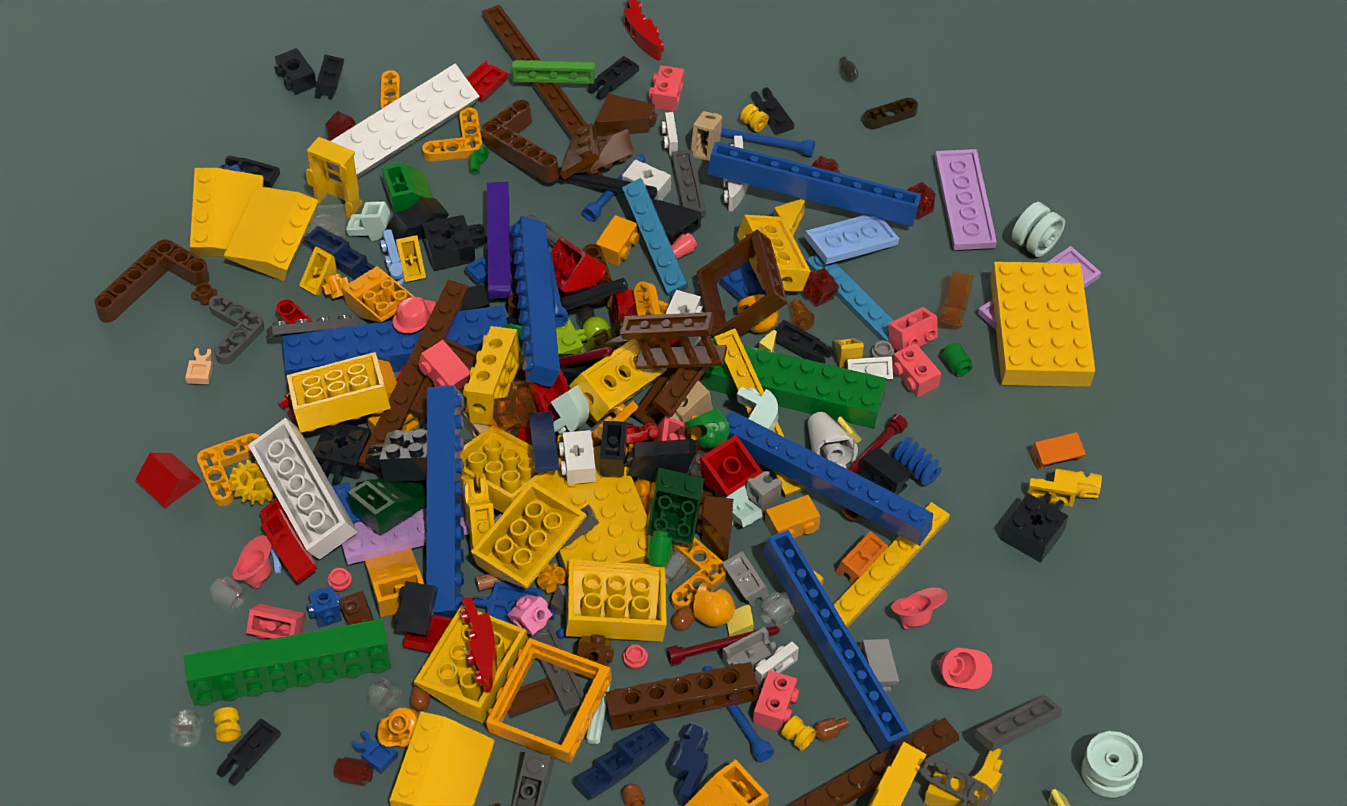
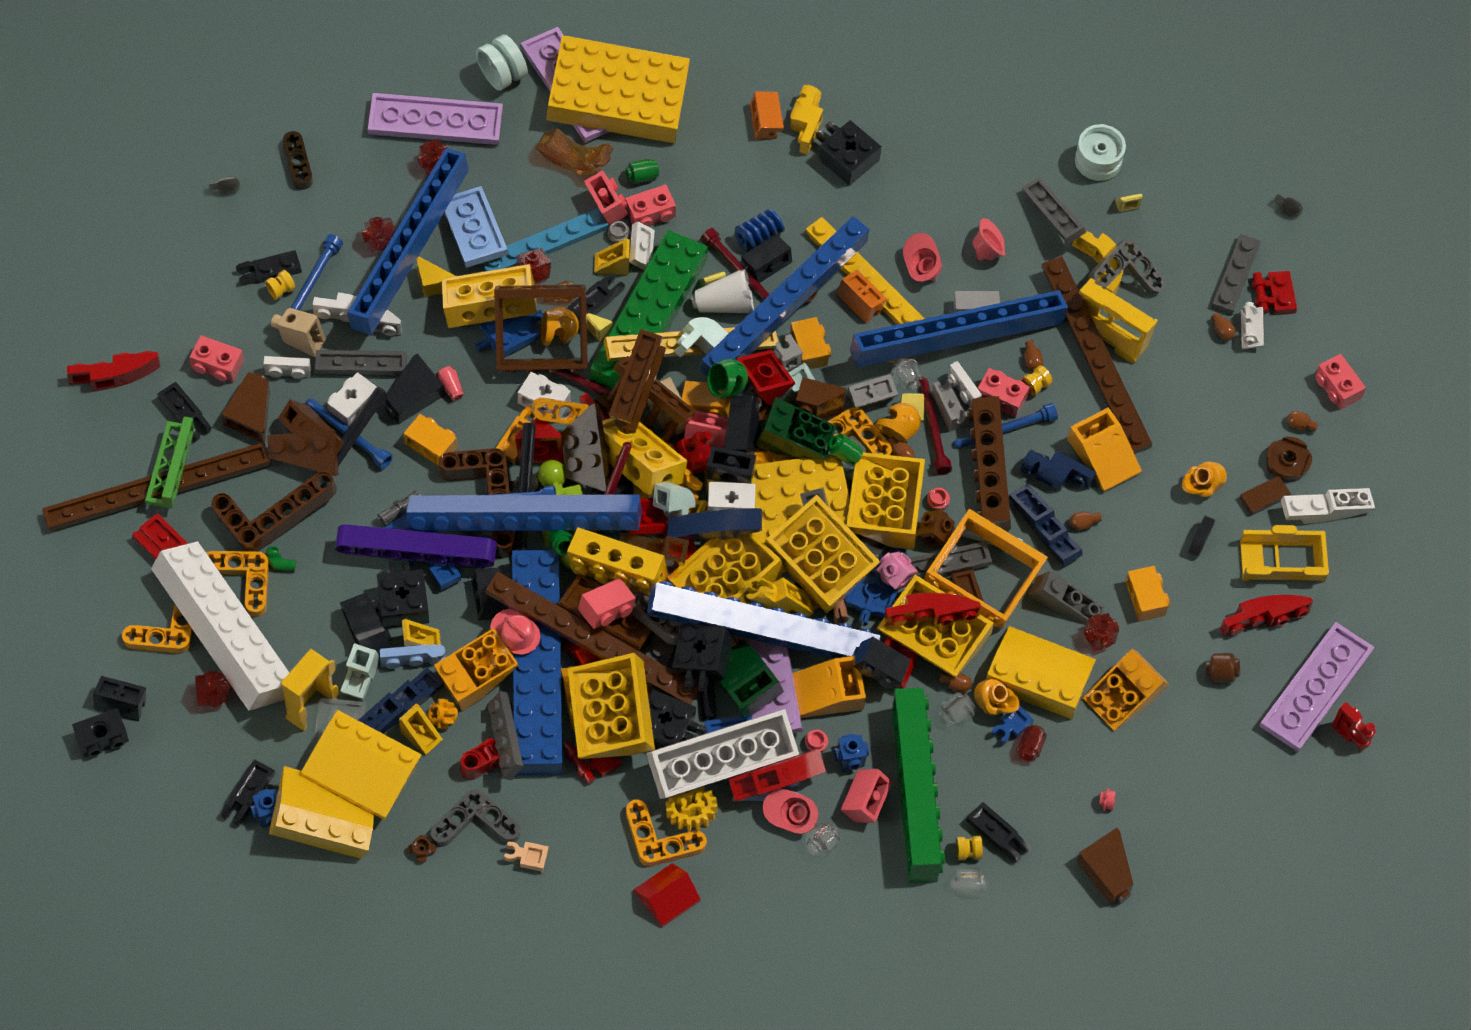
camera: 85 degrees left, 10 degrees up
(145, 272) = (389, 903): reddish brown beam -> none
(356, 608) = (869, 722): reddish brown hips -> none
(404, 185) = (315, 631): green slope -> none
(575, 267) = (479, 474): red wedge -> none
(655, 236) = (439, 400): dark azure plate -> none

